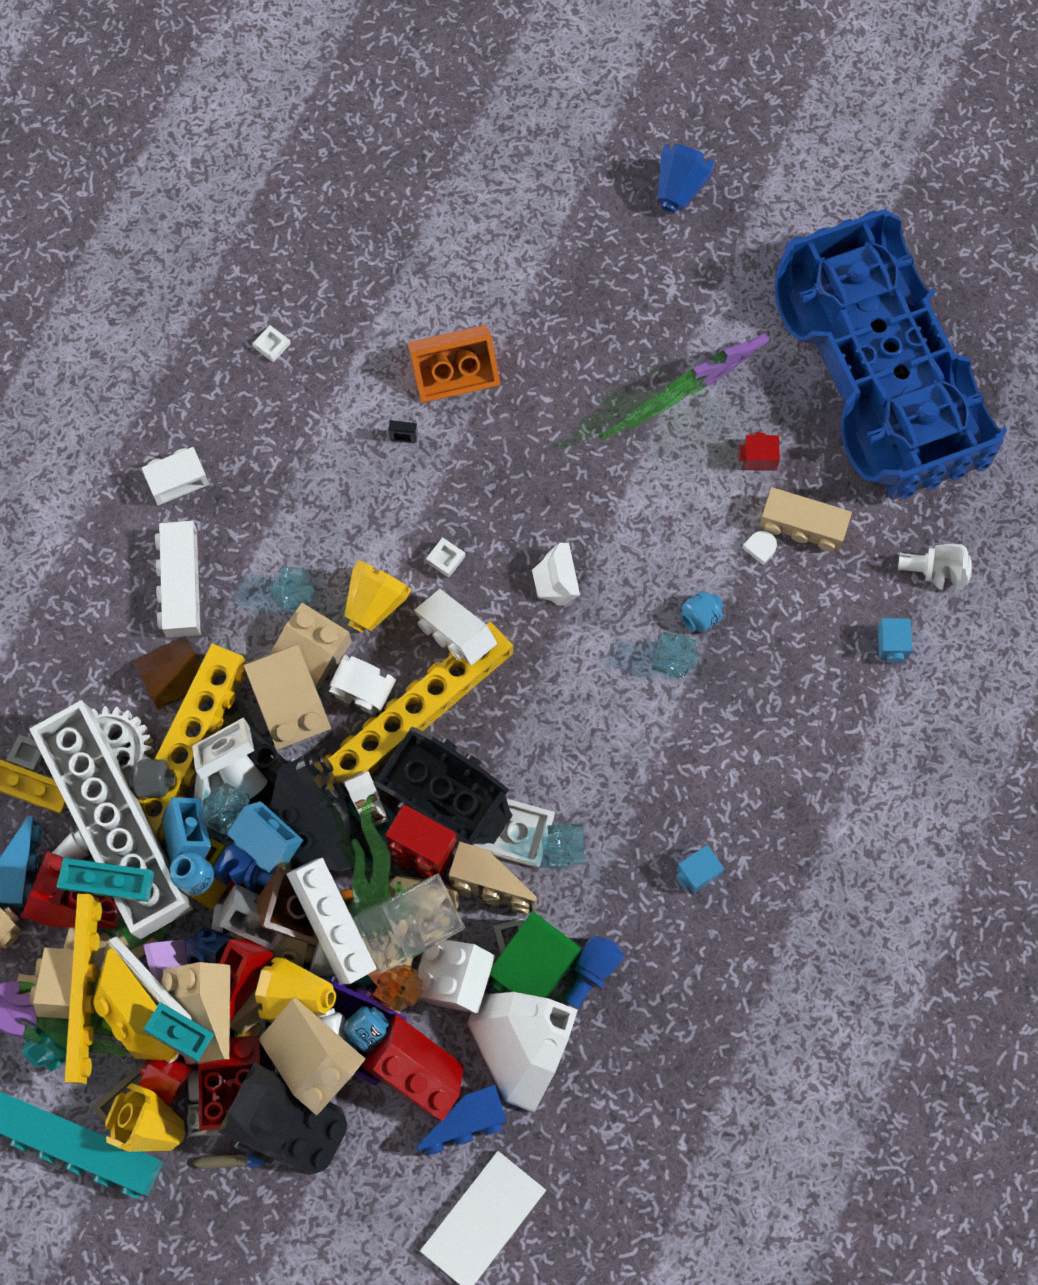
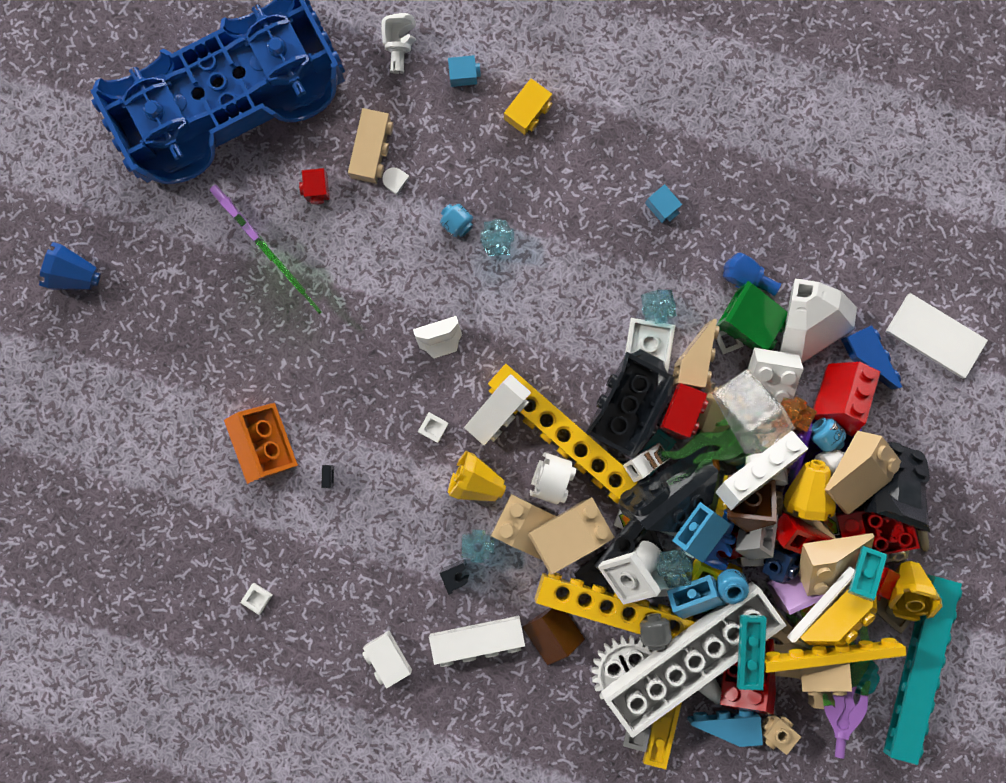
camera: 100 degrees left, 15 degrees up
(259, 555) = (452, 576): none -> black hinge
(842, 714) = (528, 106): none -> yellow brick

